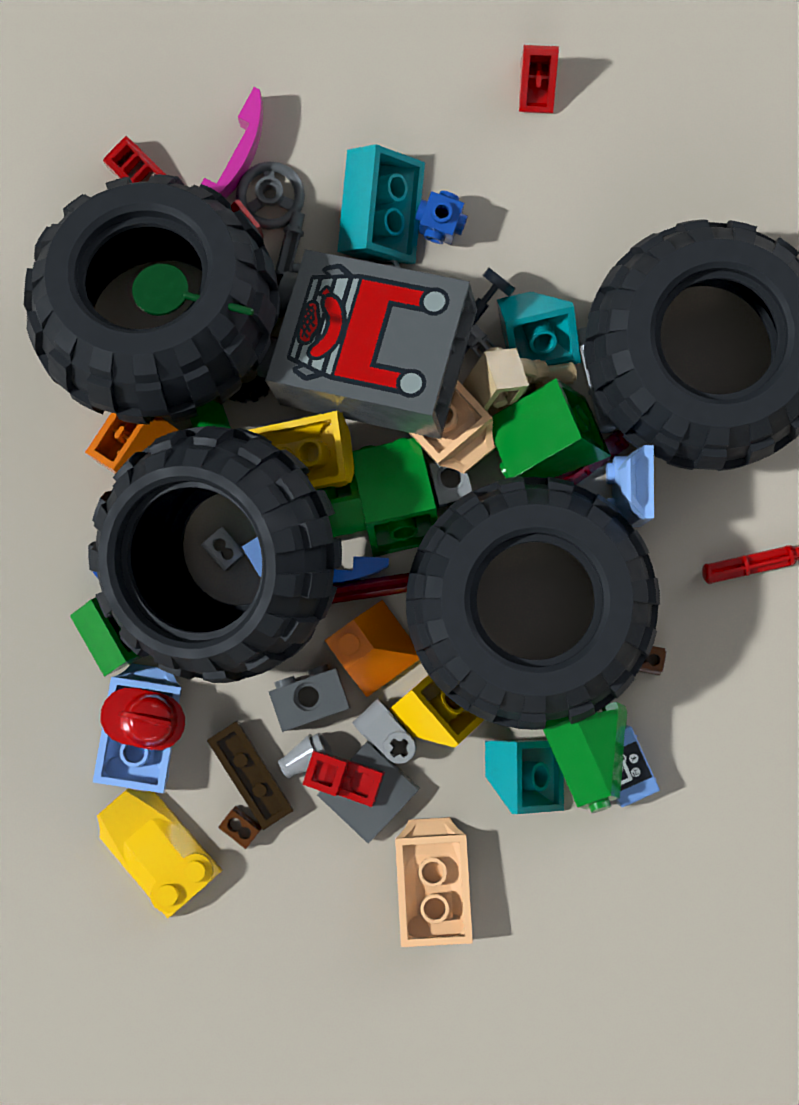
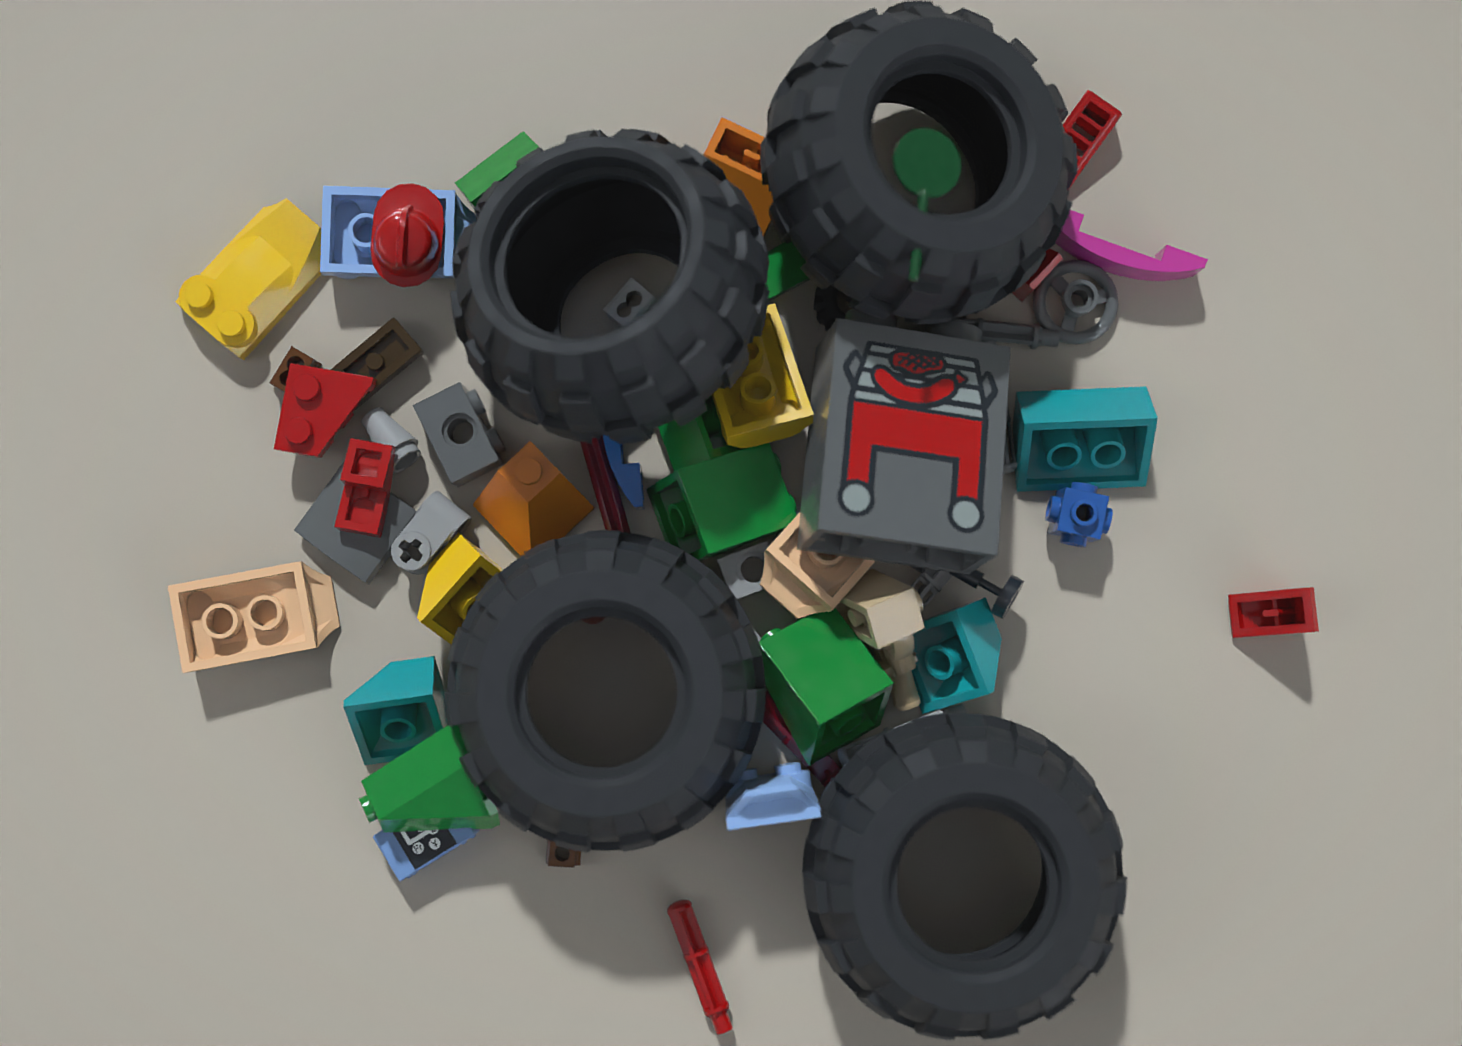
camera: 80 degrees right, 0 degrees up
(273, 809) = (317, 407): none -> red wing

